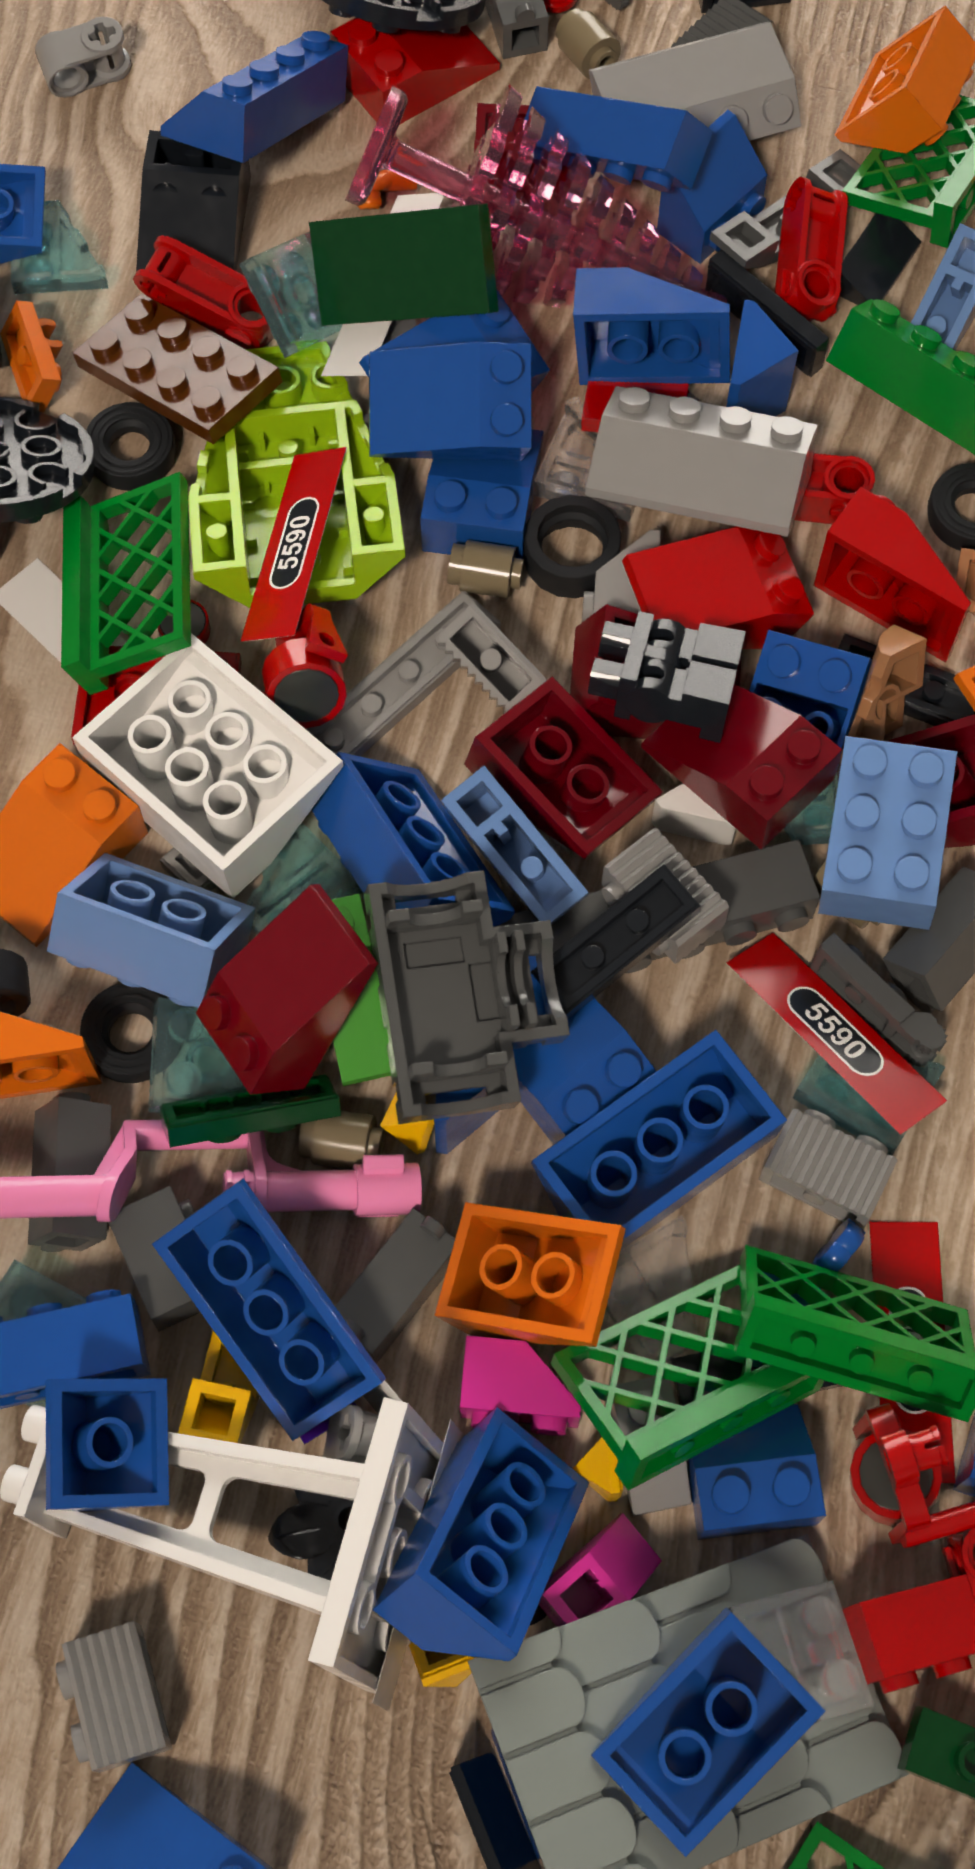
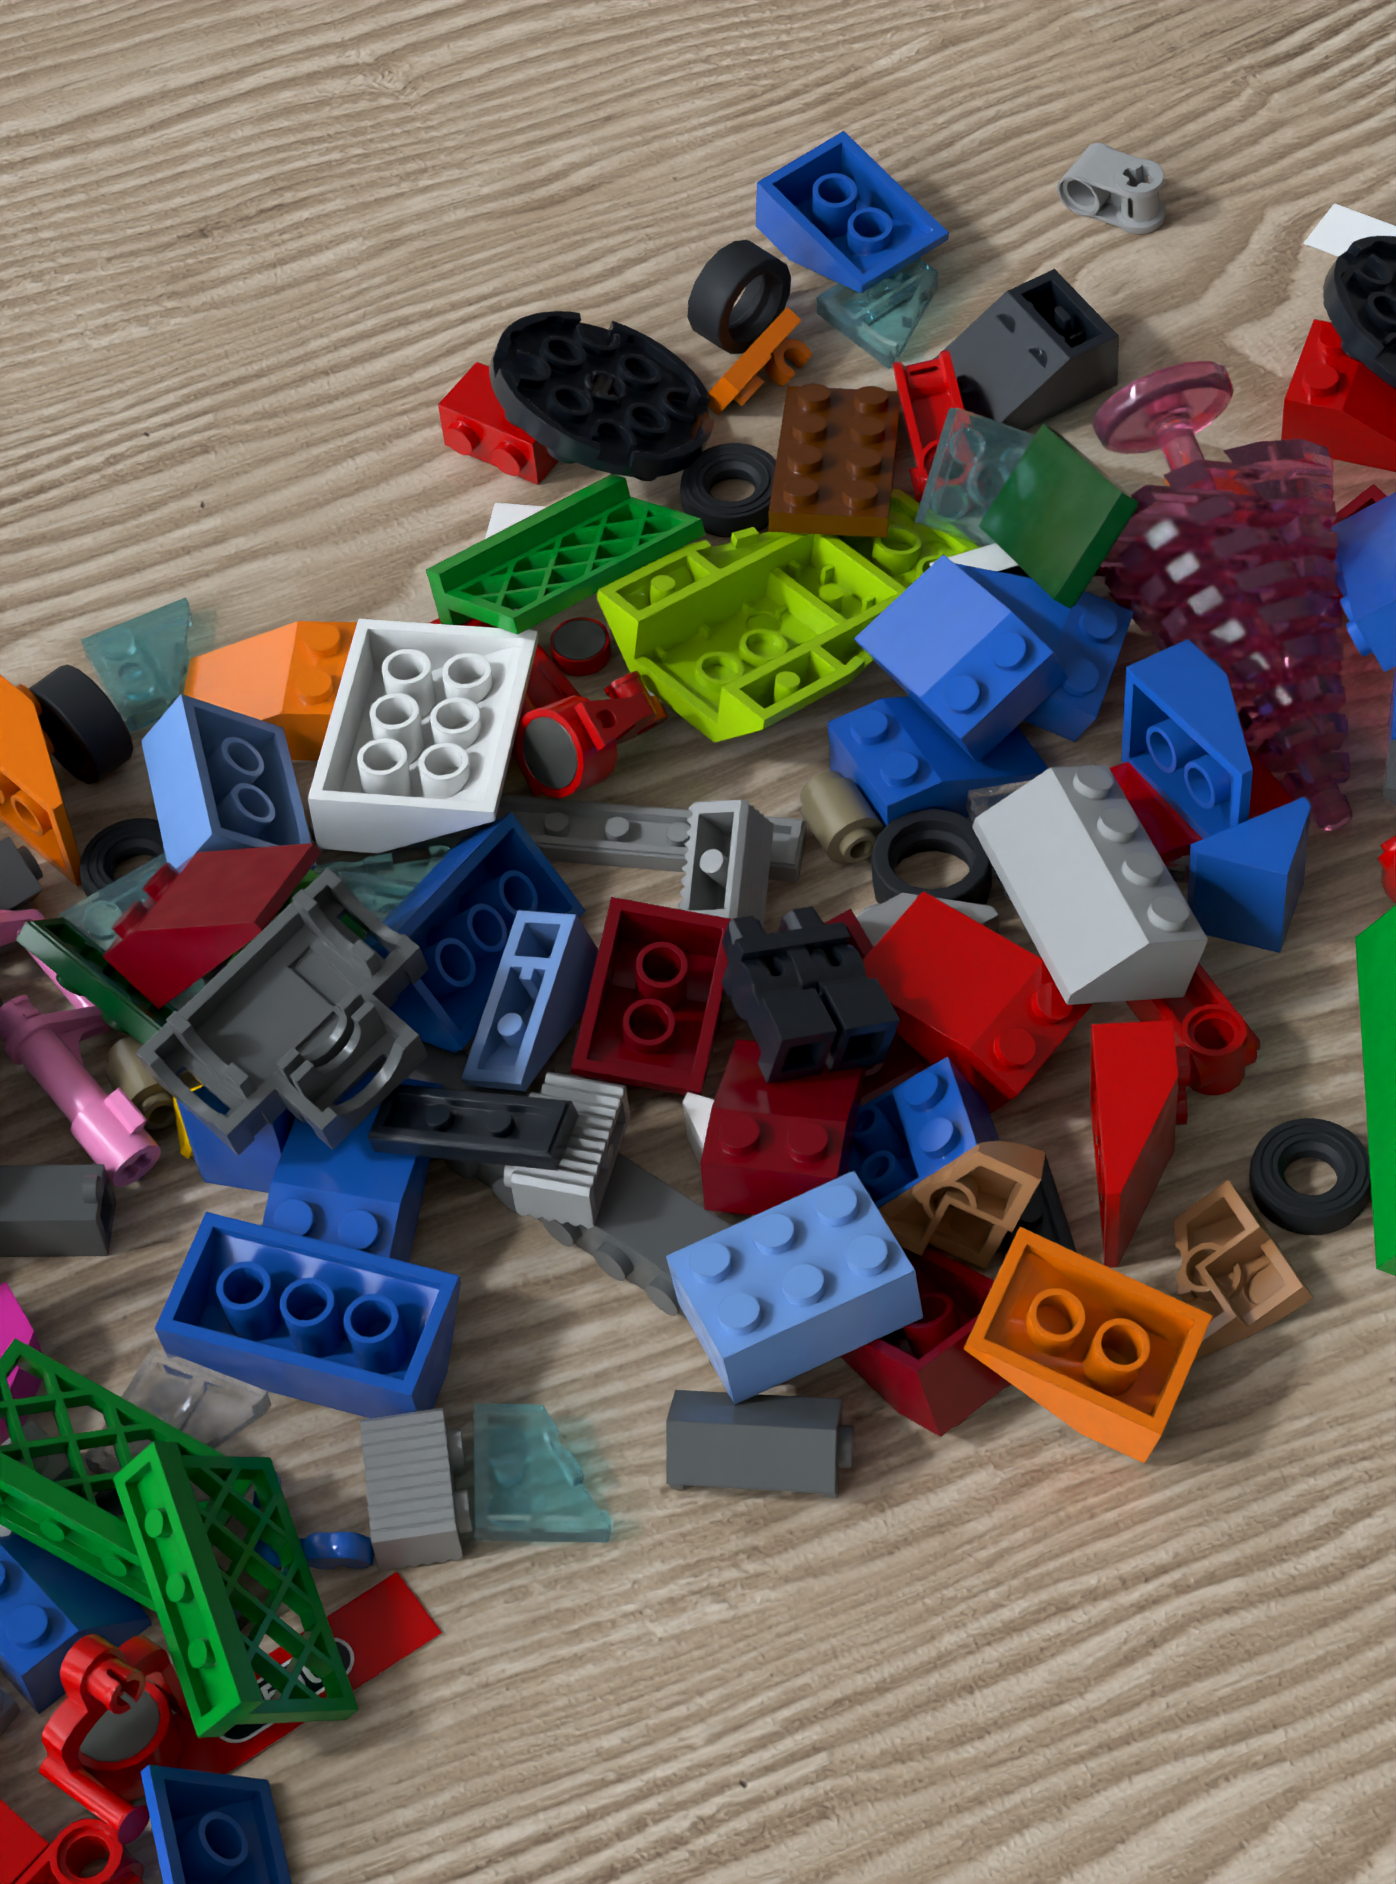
camera: 60 degrees right, 15 degrees down
(265, 99) = (1176, 319): blue slope -> none
(293, 545) = (712, 650): red sticker -> none
(529, 1276) = (86, 1273): orange slope -> none
(738, 284) = (1362, 853): black tile -> none
(837, 1033) = (569, 1410): red sticker -> none
(878, 1002) = (633, 1426): dark grey hinge -> none

